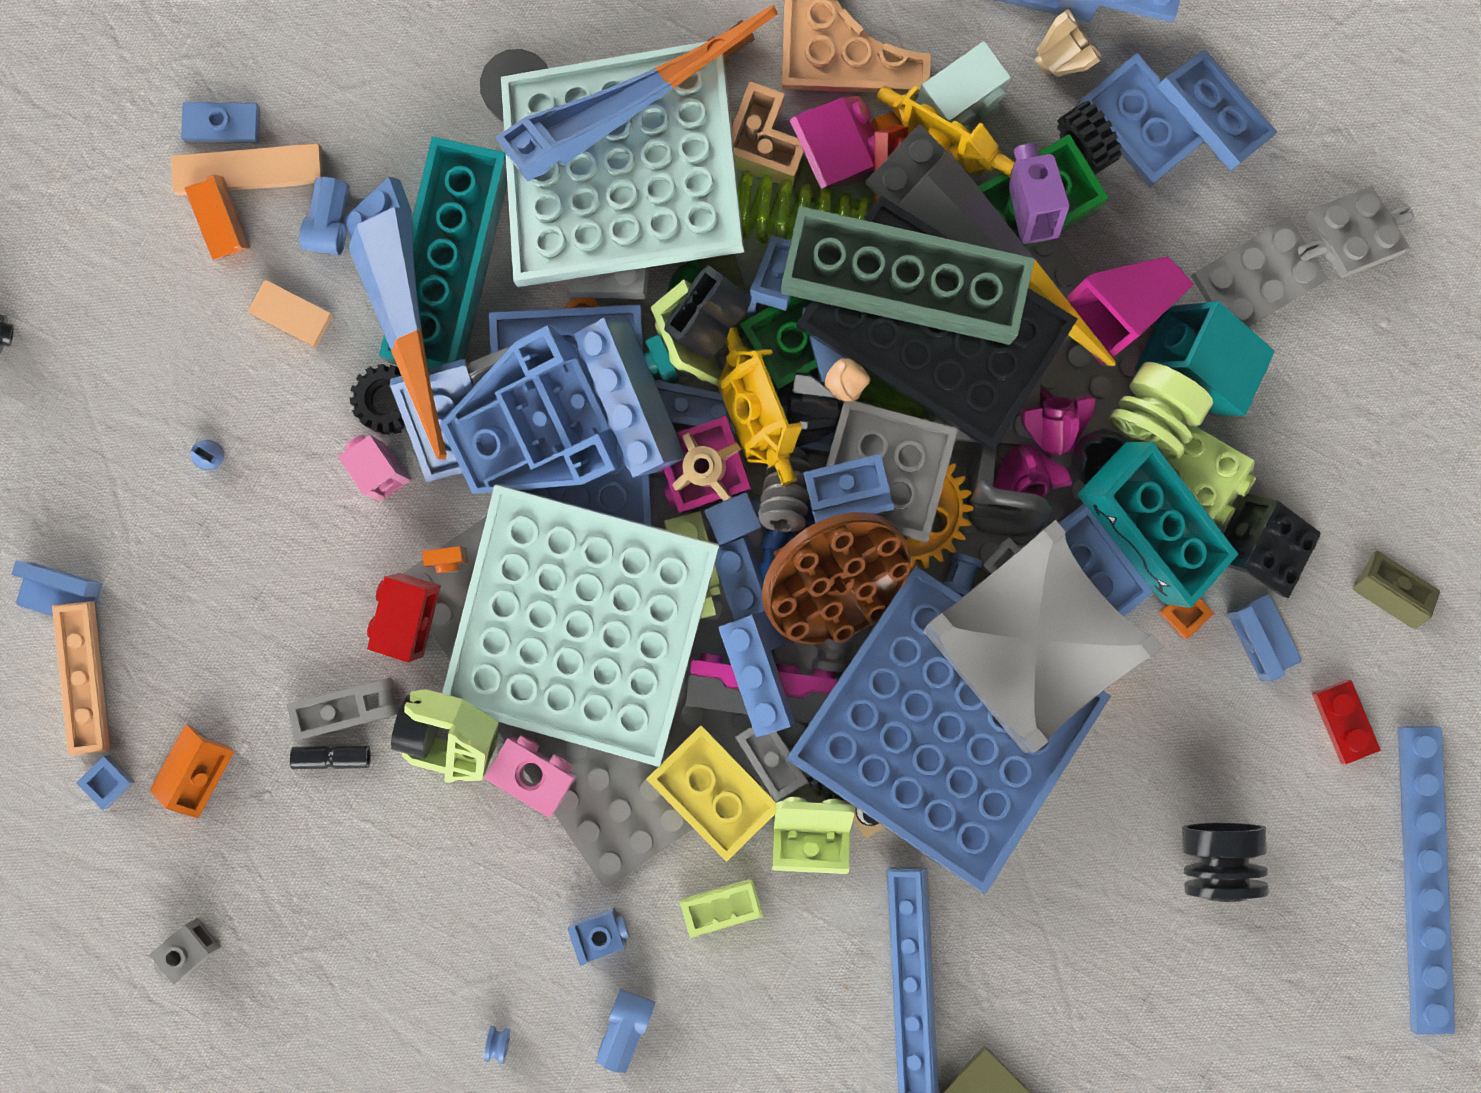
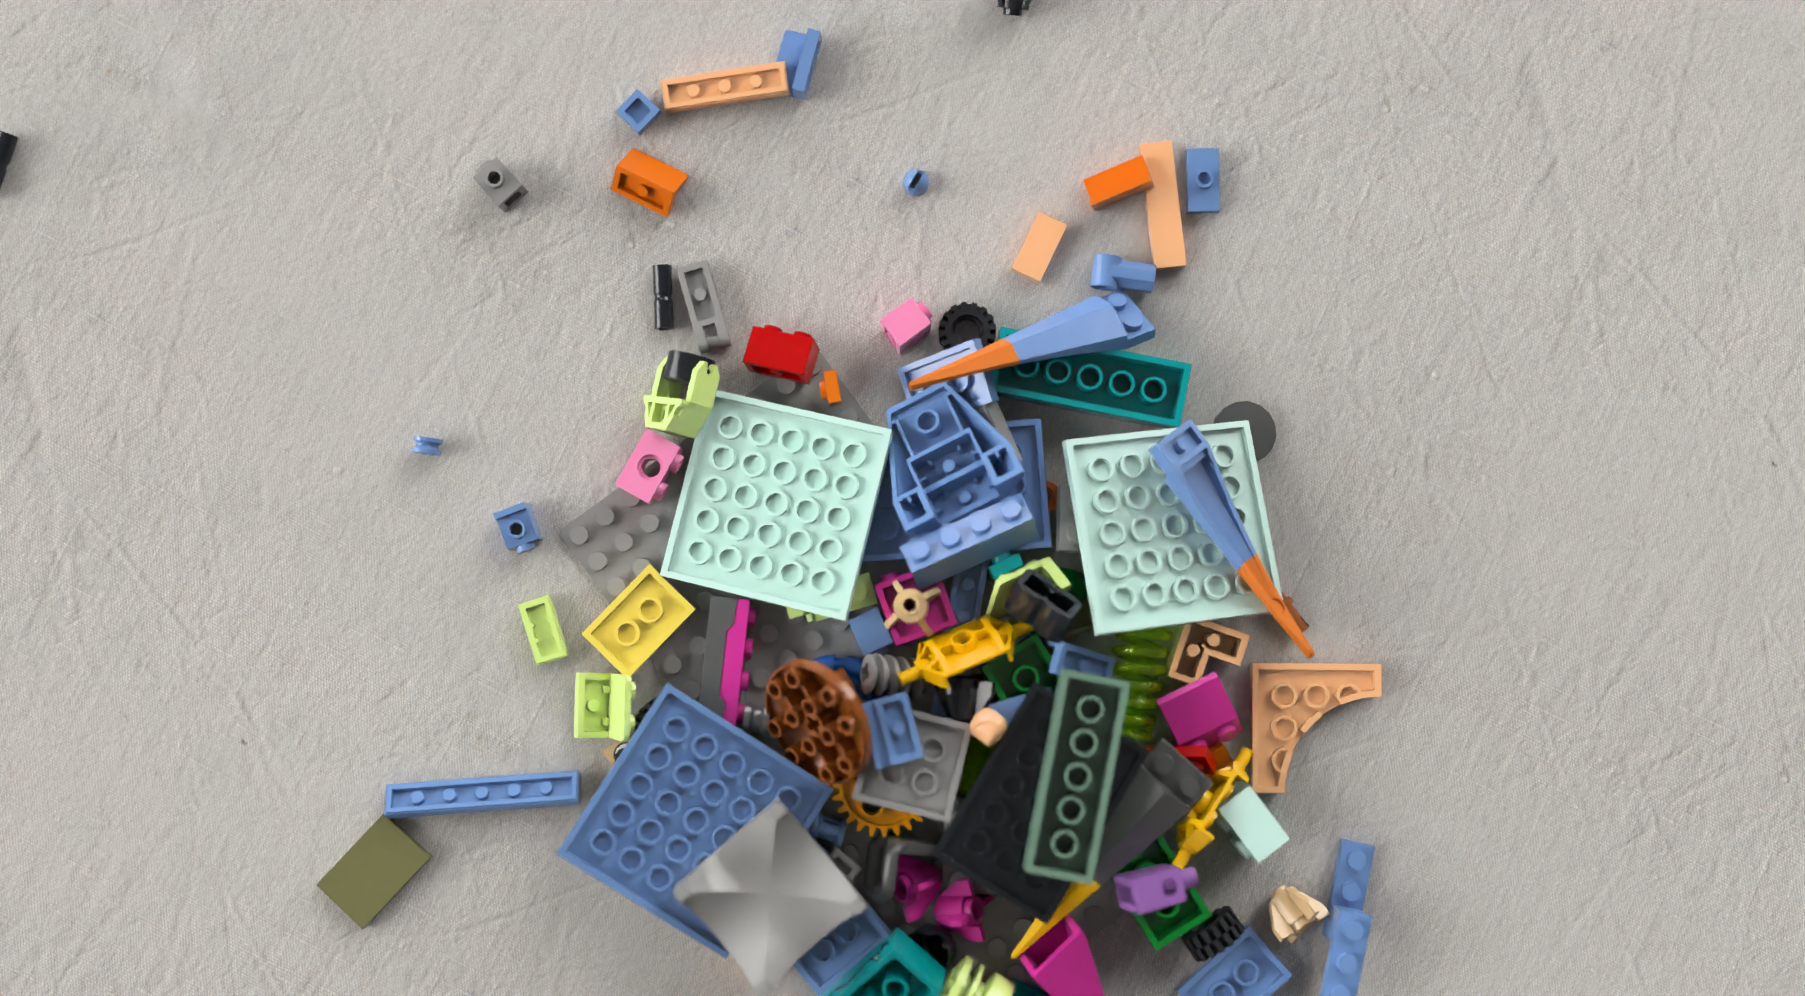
camera: 90 degrees right, 0 degrees up
(627, 1022) = (447, 554): medium blue piece -> none
(751, 639) = (768, 650): medium blue bracket -> none
(769, 759) = (668, 668): light grey plate -> none

